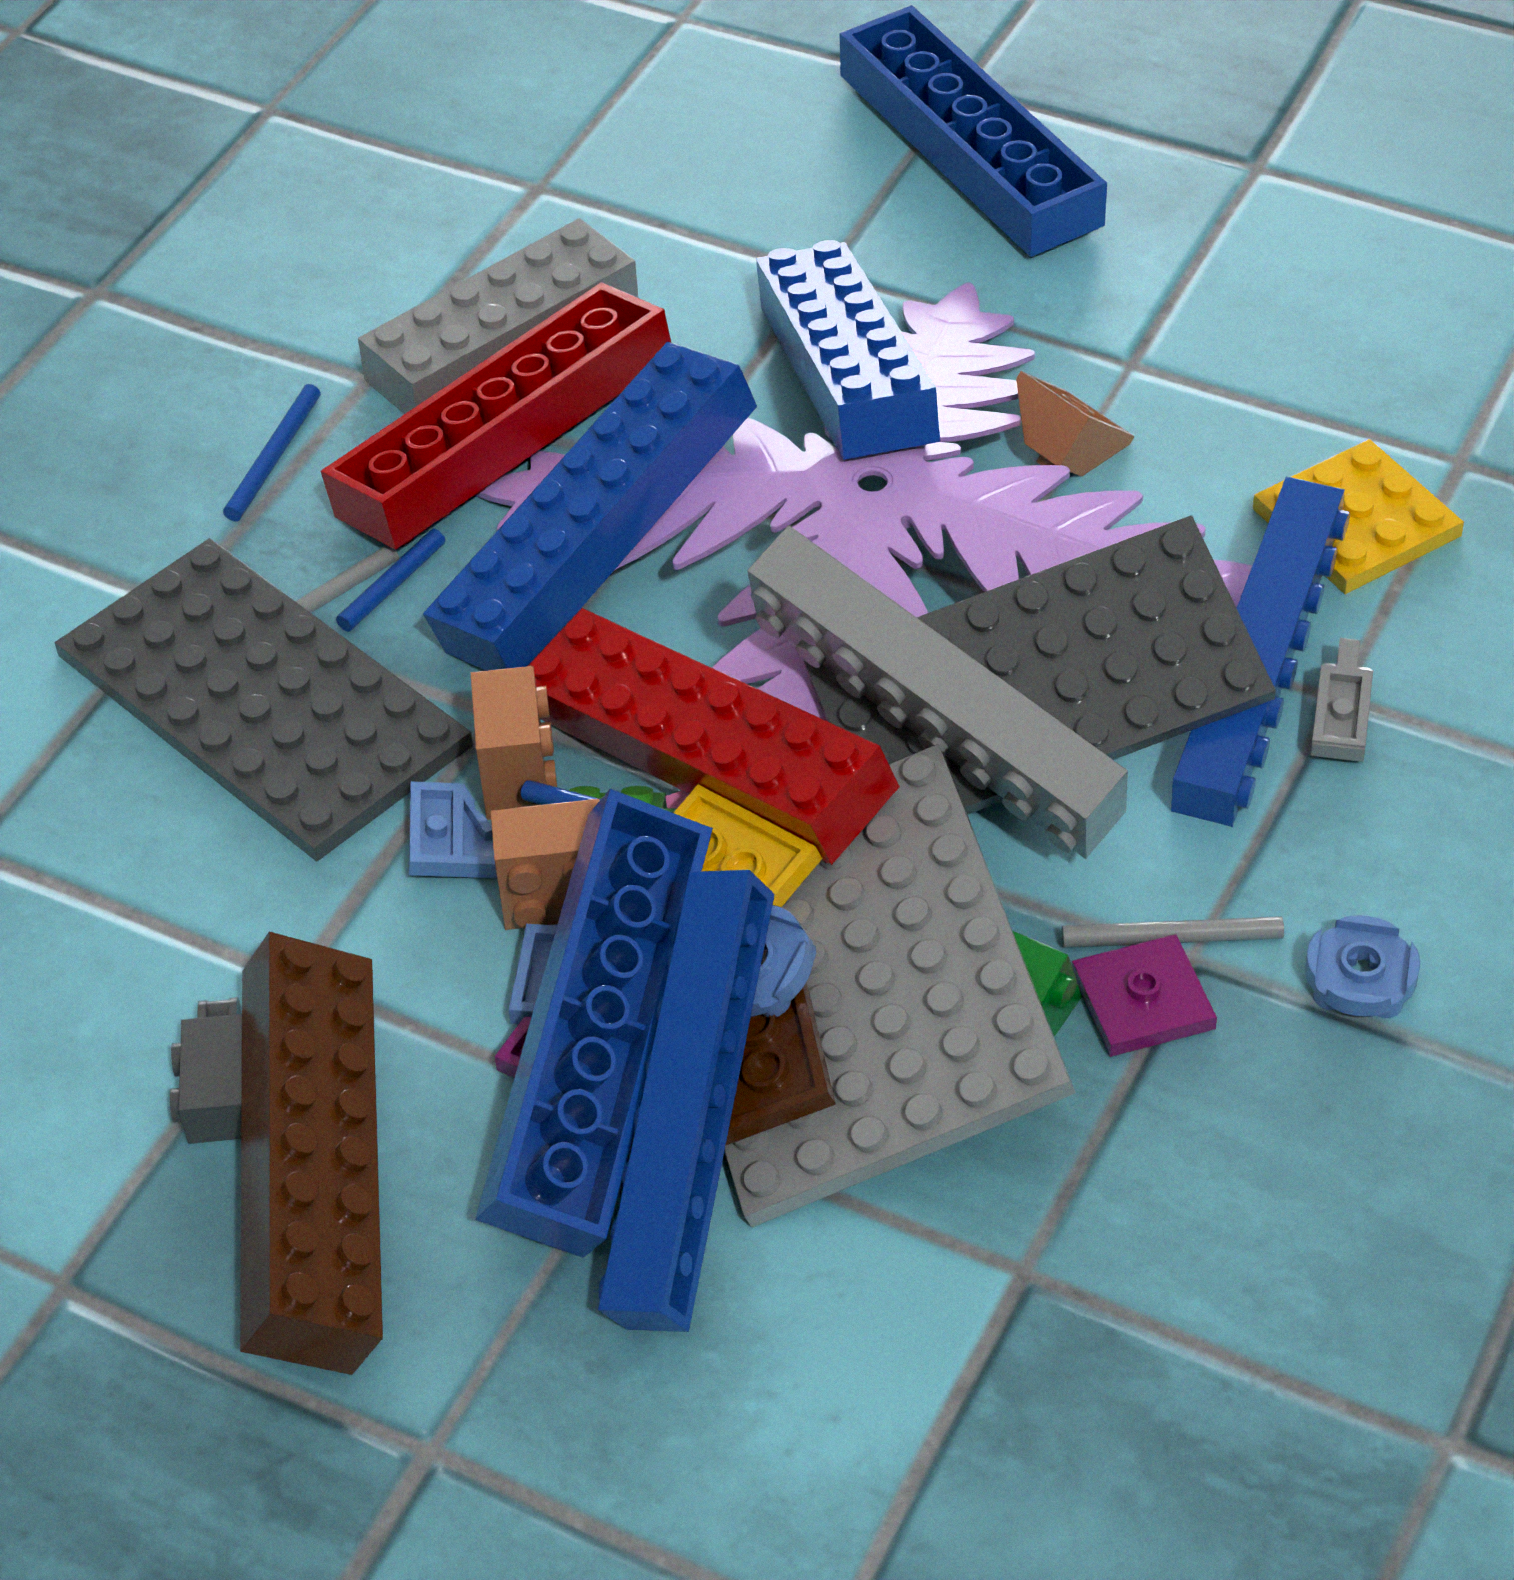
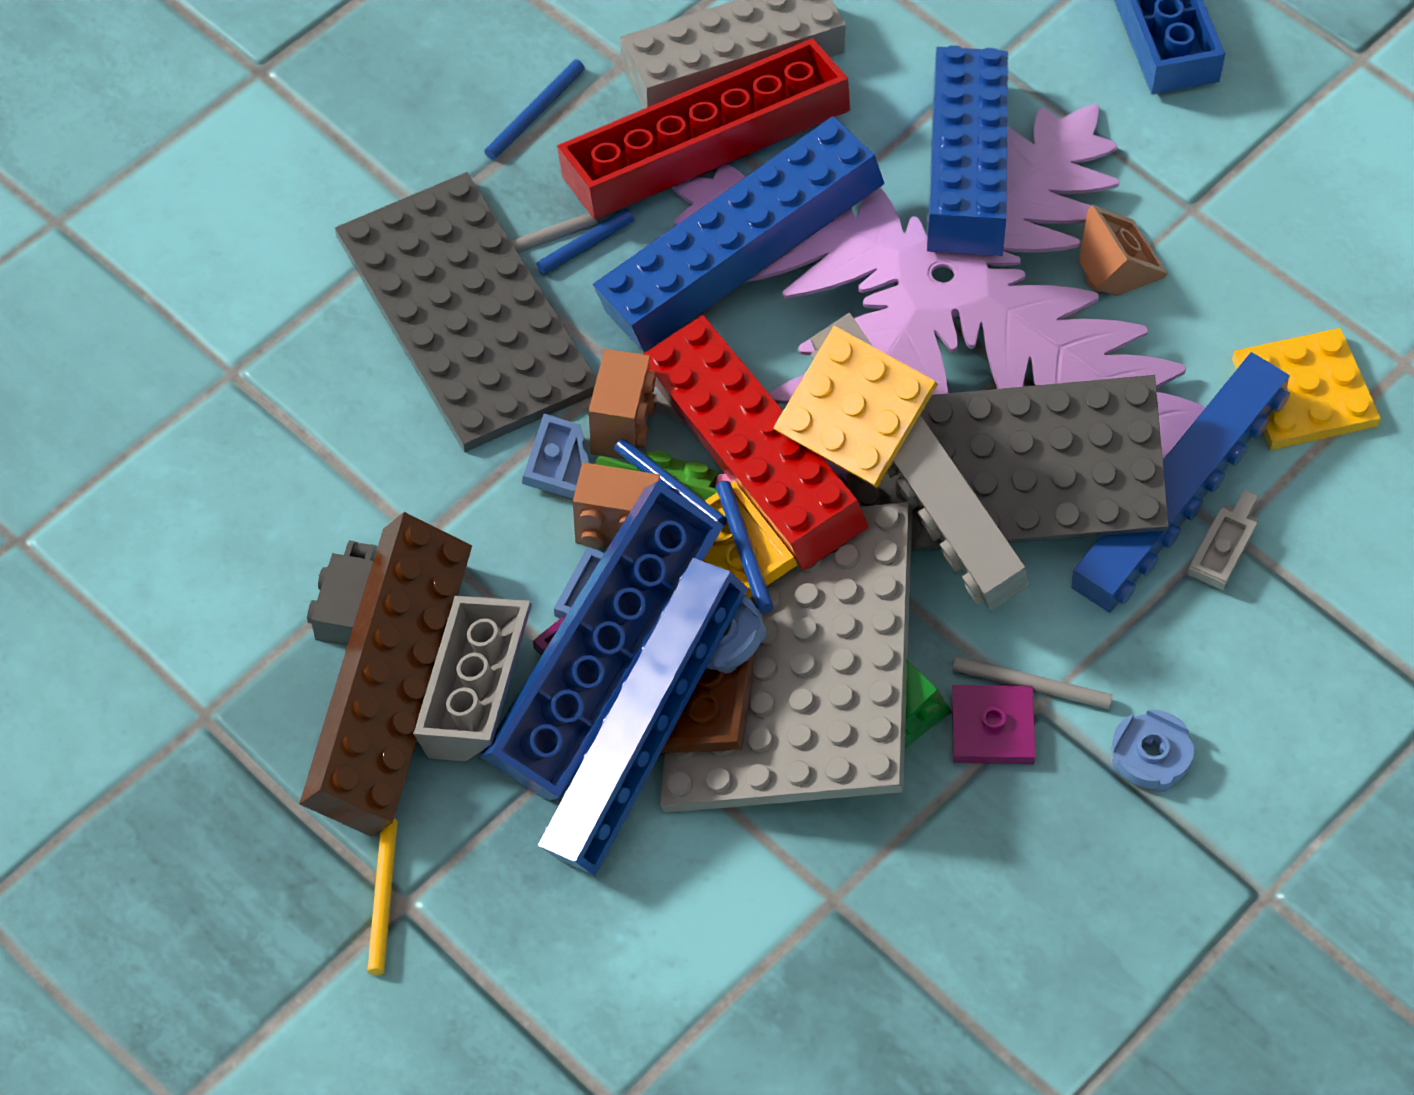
camera: 15 degrees right, 10 degrees up
(398, 1453) = (382, 899): none -> yellow bar
(430, 1121) = (471, 676): none -> light grey slope
(744, 852) = (744, 547): none -> blue bar
(836, 634) = (855, 406): none -> yellow plate

